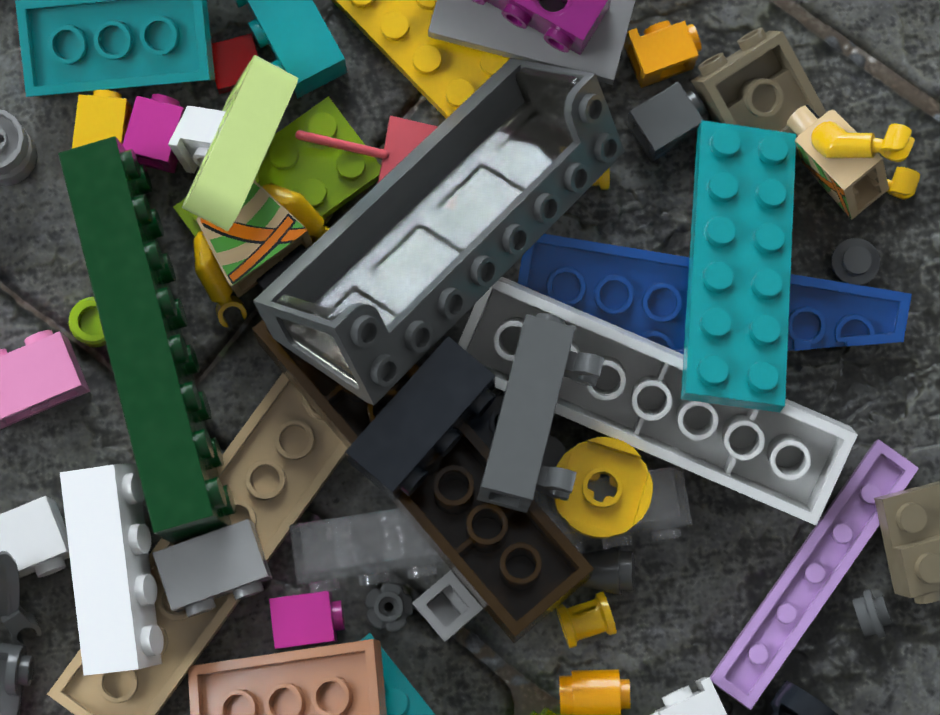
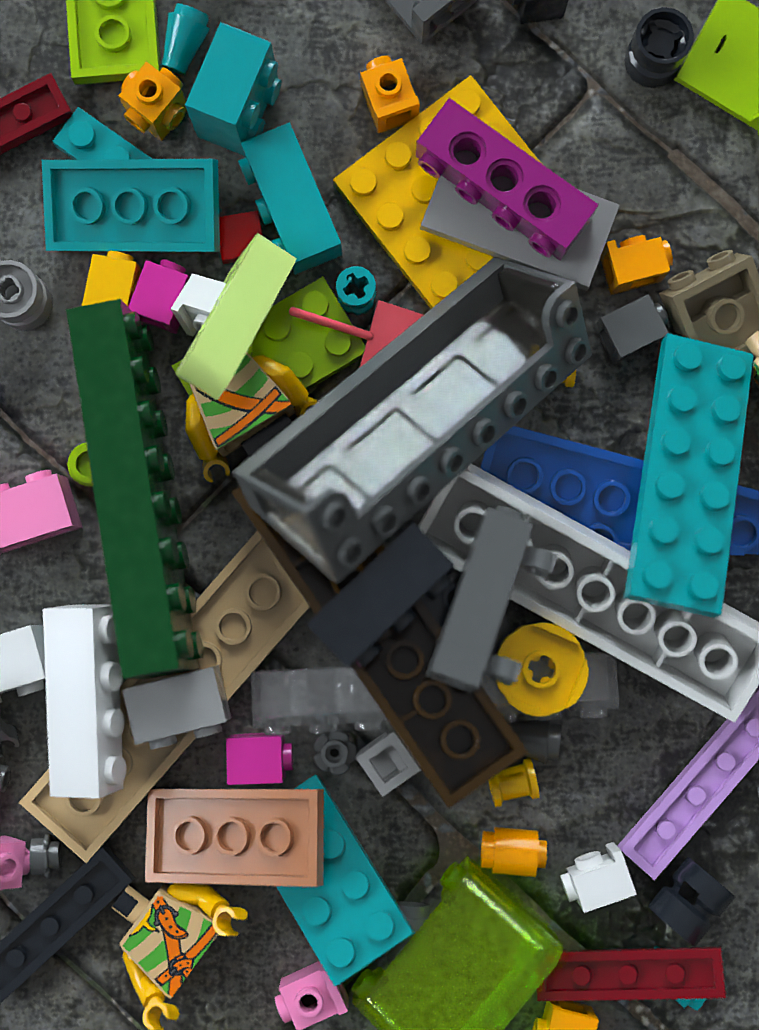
camera: 10 degrees right, 5 degrees up
(370, 95) = (361, 278): none -> teal bush

